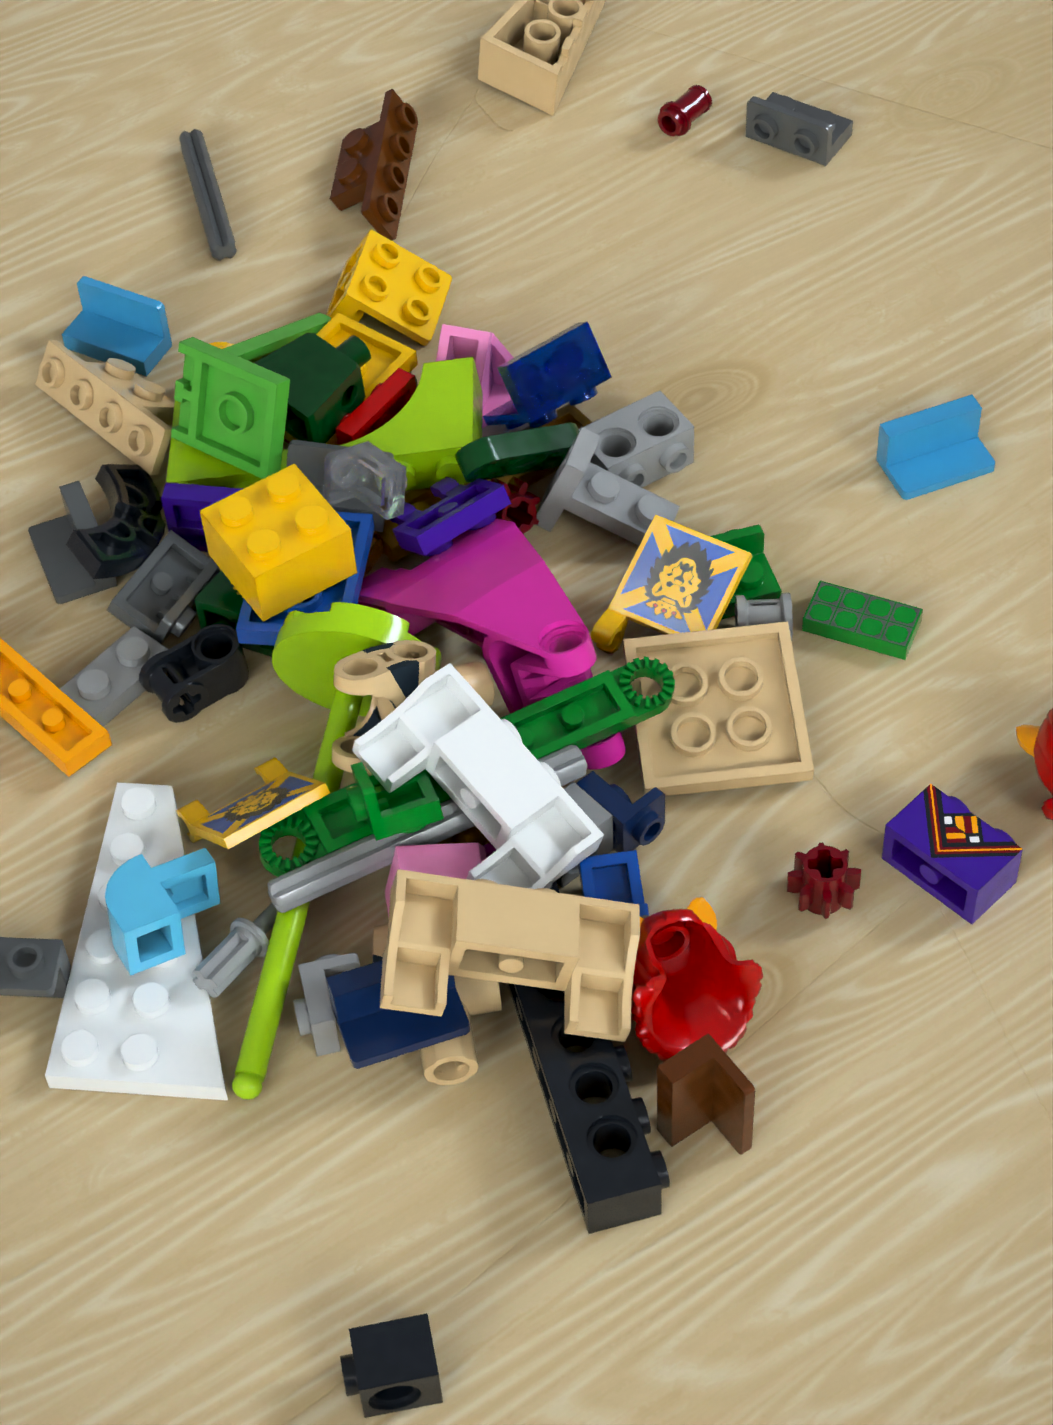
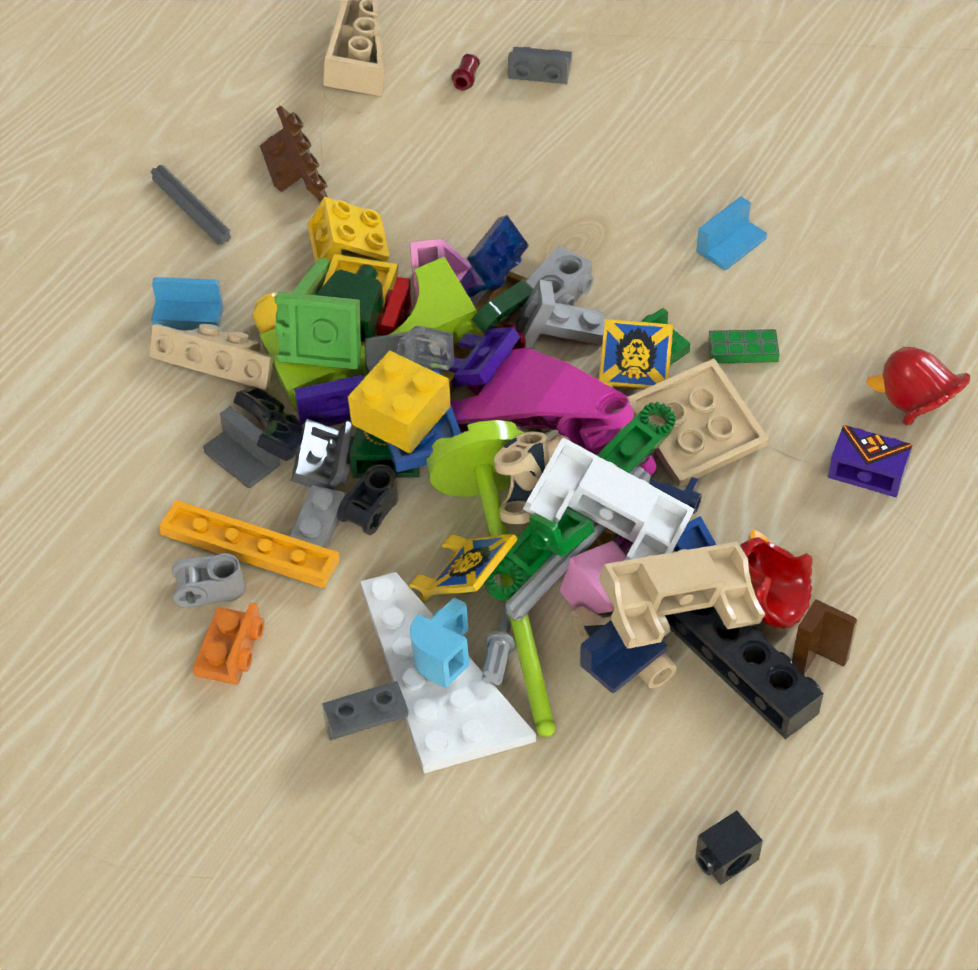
camera: 25 degrees left, 0 degrees up
(315, 1010) = (563, 666): light grey bracket -> none
(764, 611) = (689, 358): light grey bush -> none
(823, 880) = (809, 499): dark red gear -> none

